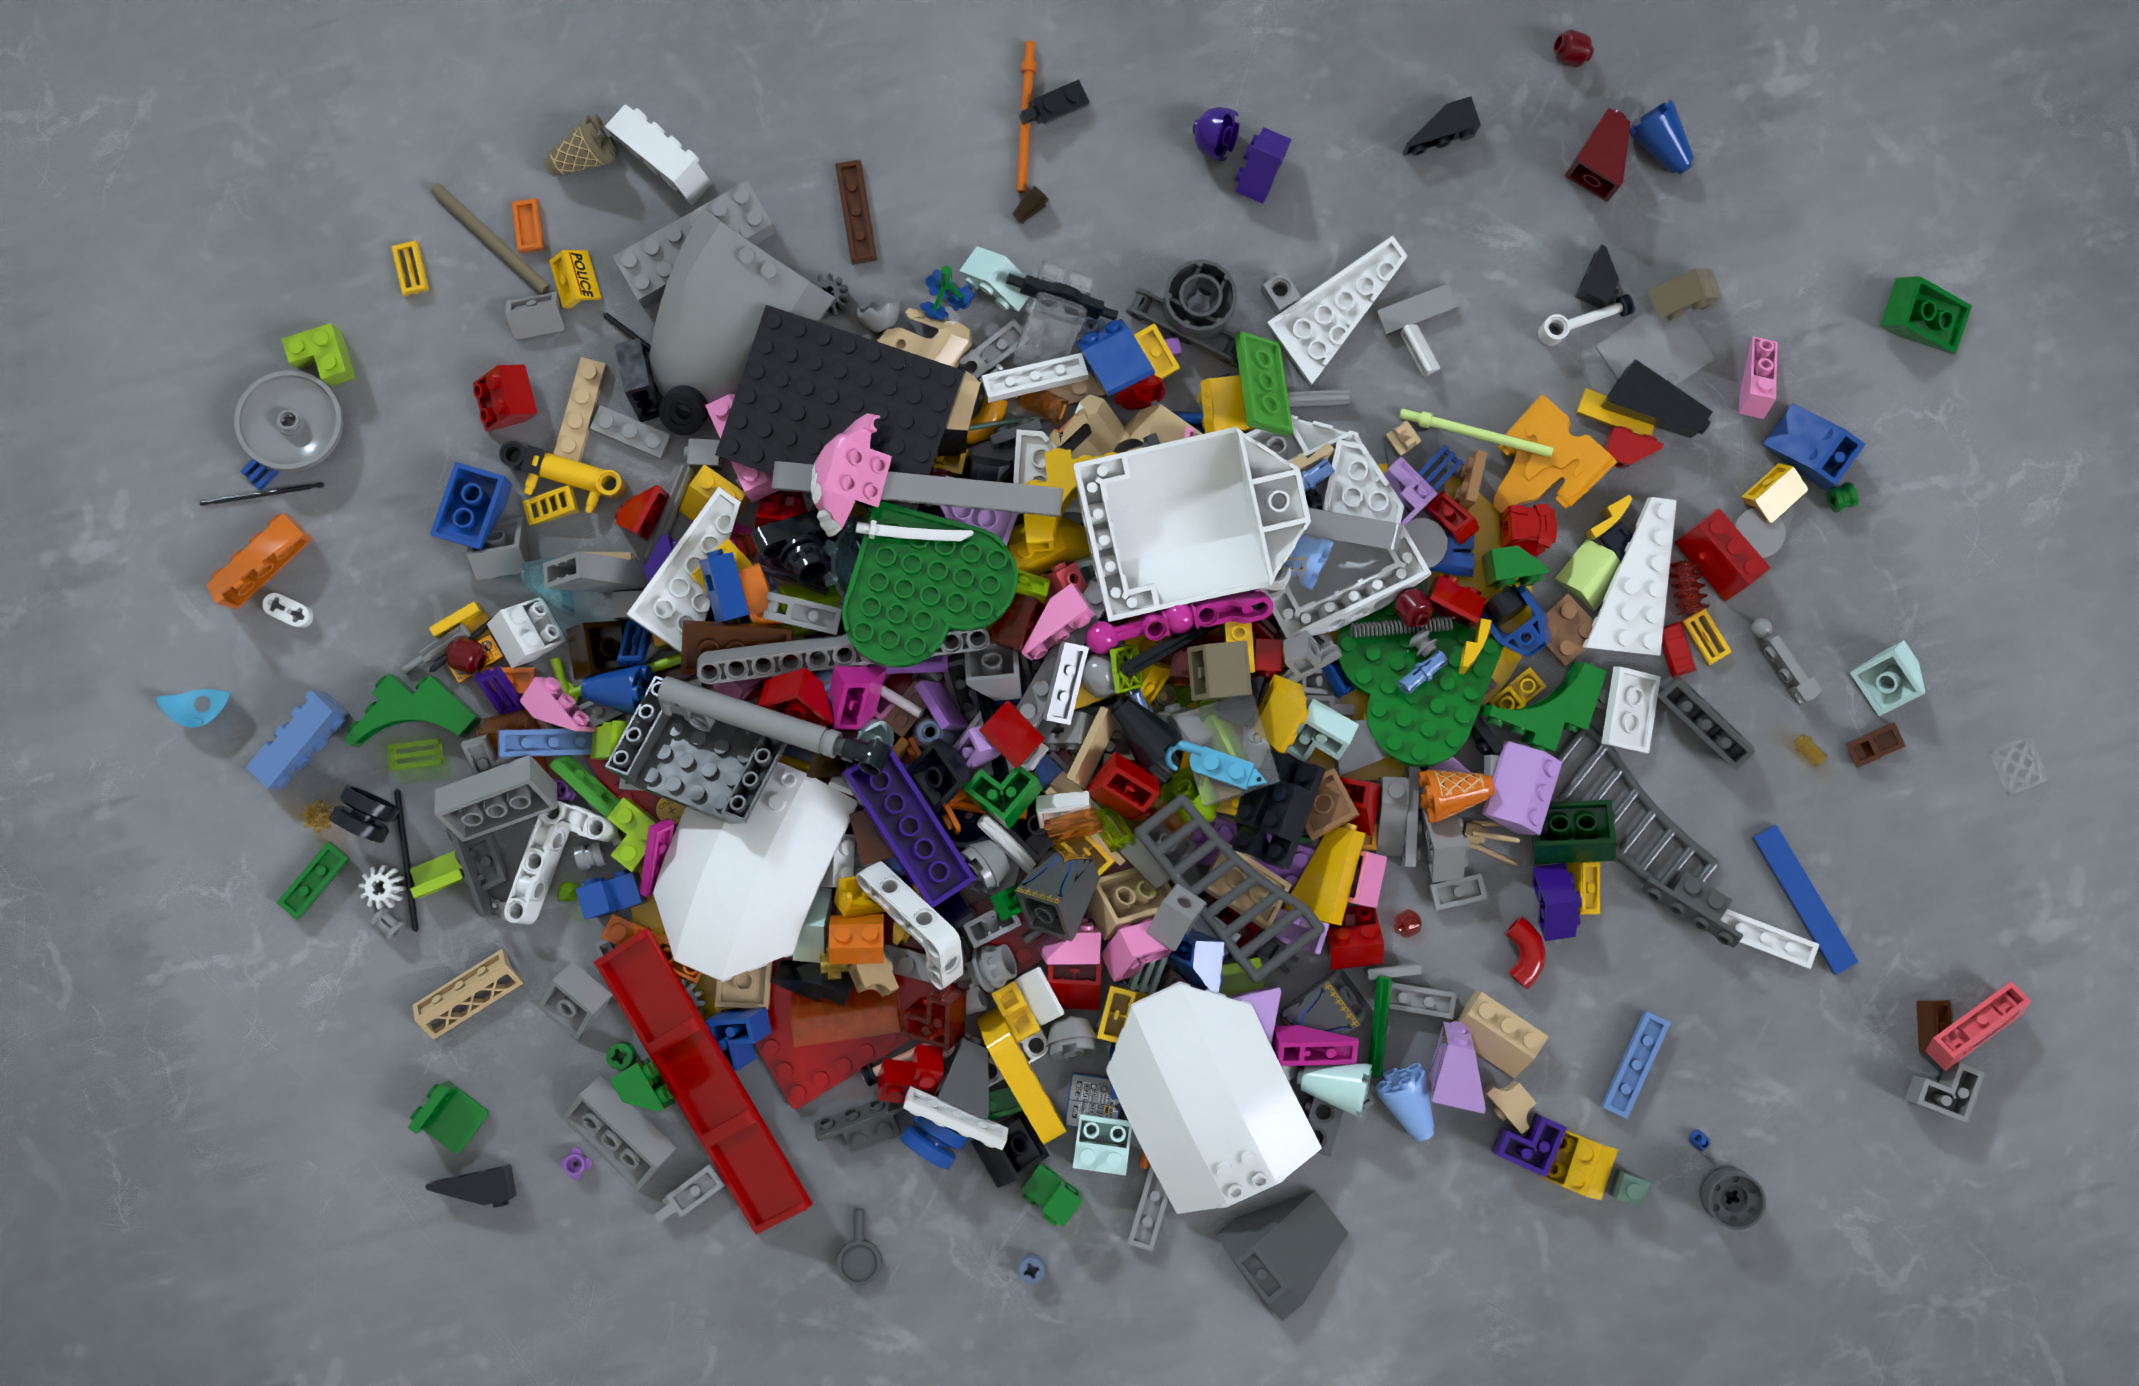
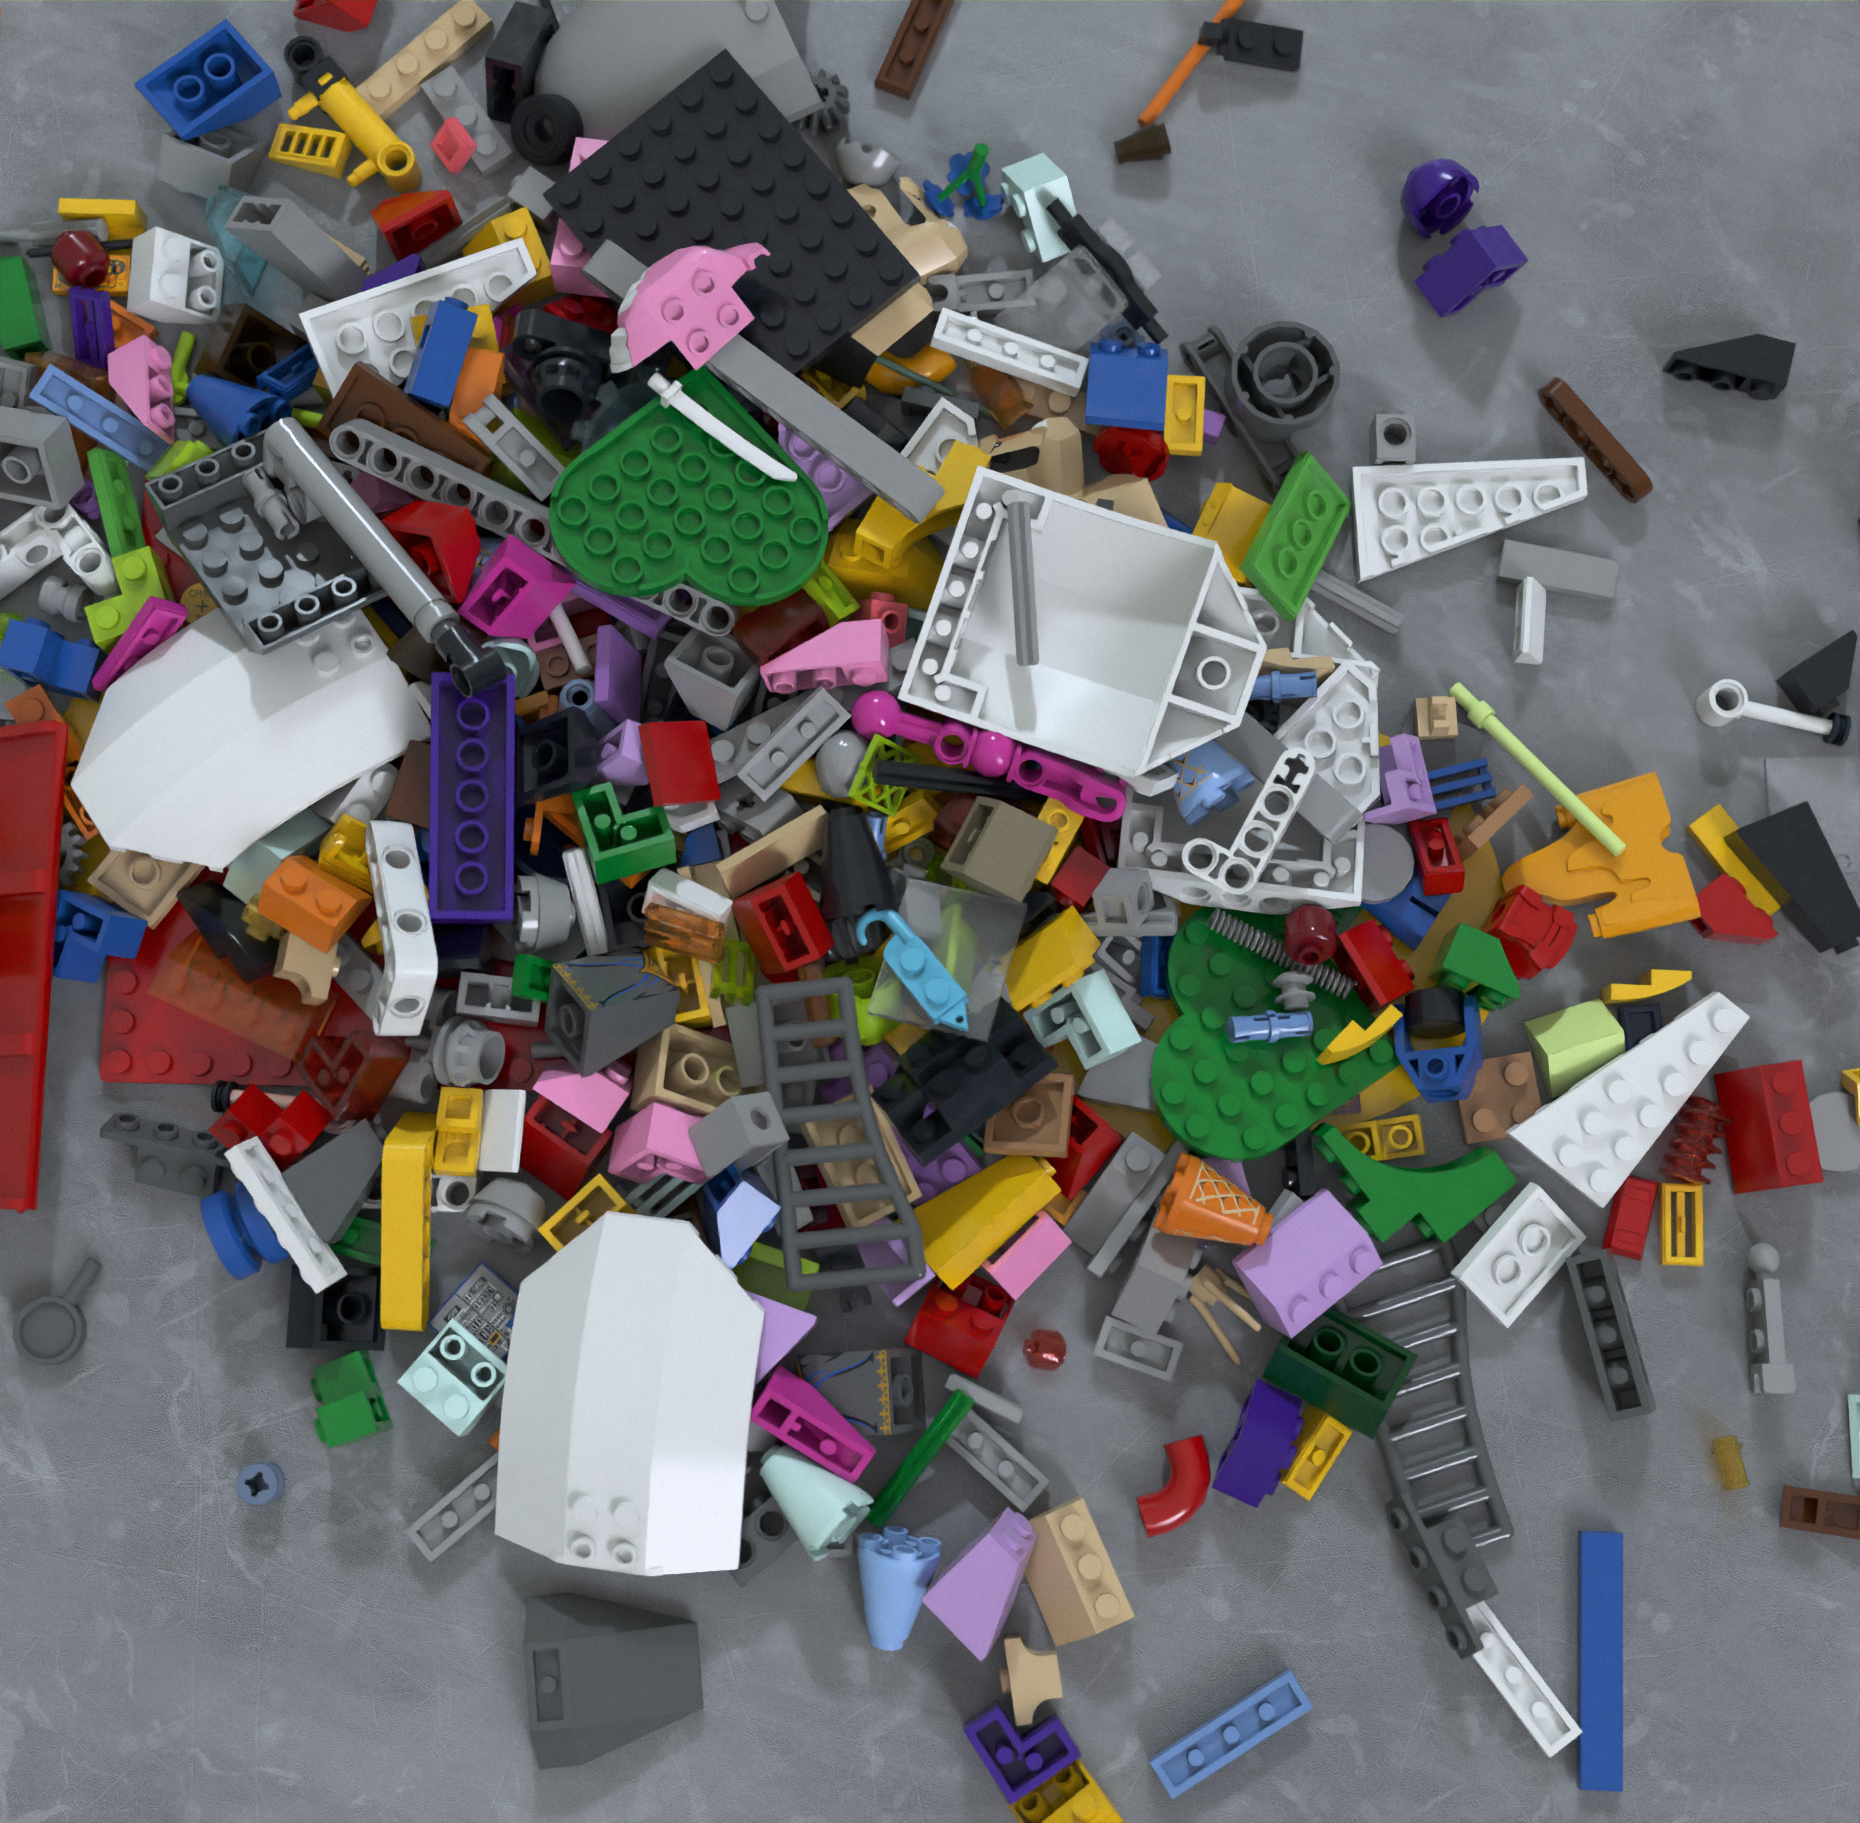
camera: 30 degrees right, 5 degrees down
(633, 452) = (453, 145): none -> coral tile
(682, 731) = (270, 503): none -> light grey pin
(1140, 515) = (1023, 583): none -> light grey axle
(1350, 563) = (1258, 818): none -> white beam
(1392, 221) = (1595, 440): none -> reddish brown beam

